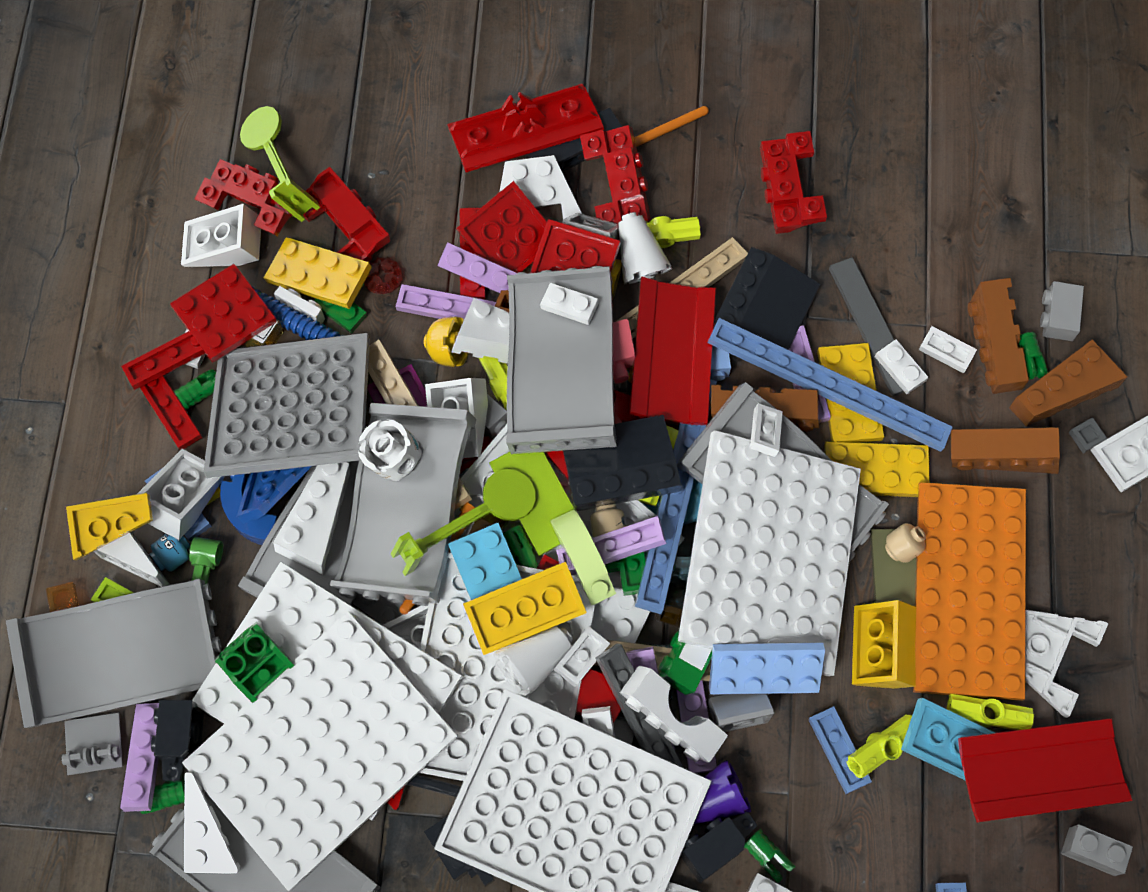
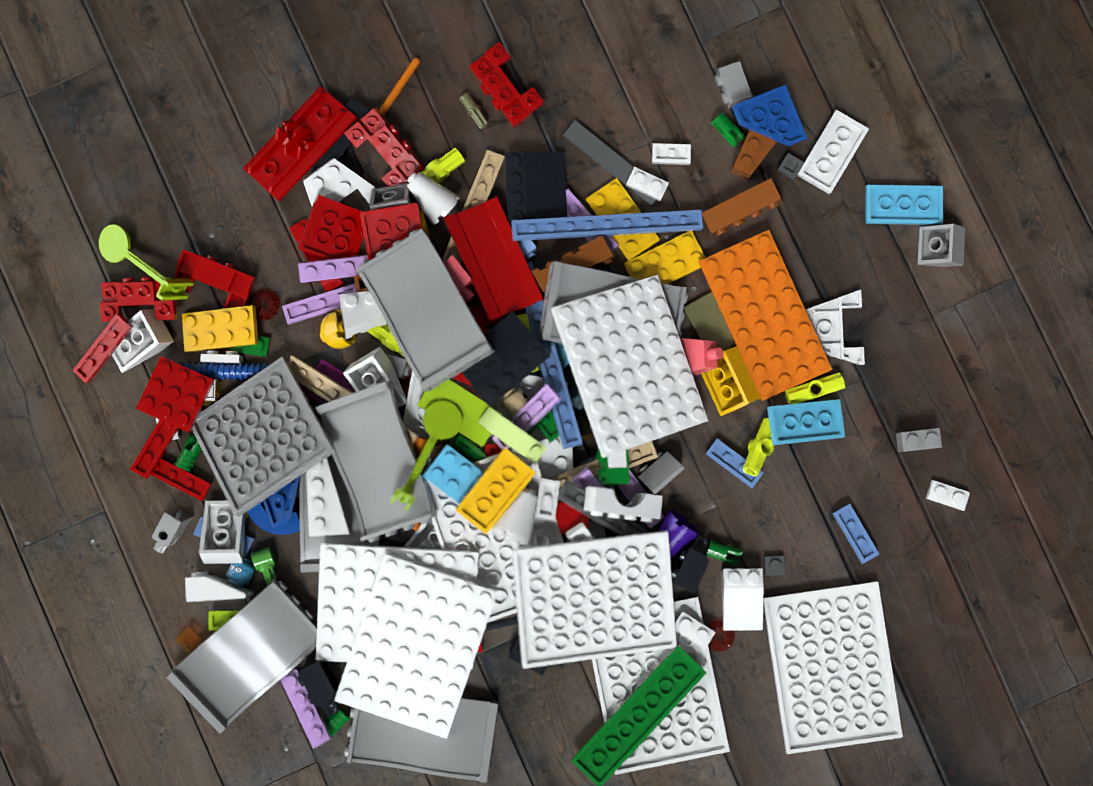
camera: 30 degrees left, 15 degrees up
(93, 744) = (267, 717): light grey hinge -> none
(104, 521) = (190, 581): yellow wing -> none
(123, 458) = (170, 528): none -> light grey torso
(177, 225) = (103, 348): none -> plate
(204, 843) = (378, 739): white wing -> none
(253, 661) = (342, 617): green slope -> none
(389, 449) = (349, 436): white brick -> none
(569, 303) = (409, 268): white plate -> none
(740, 190) = (474, 110): none -> olive axle
(766, 430) = (585, 287): white plate -> none
(766, 668) = (665, 442): light blue plate -> none
(866, 593) = (701, 355): none -> coral torso
(905, 543) = (710, 308): tan head -> none
(998, 336) = (700, 128): dark orange wedge -> none
(1042, 770) = (864, 409): red hinge -> none
(1094, 360) = (772, 116): none -> blue plate

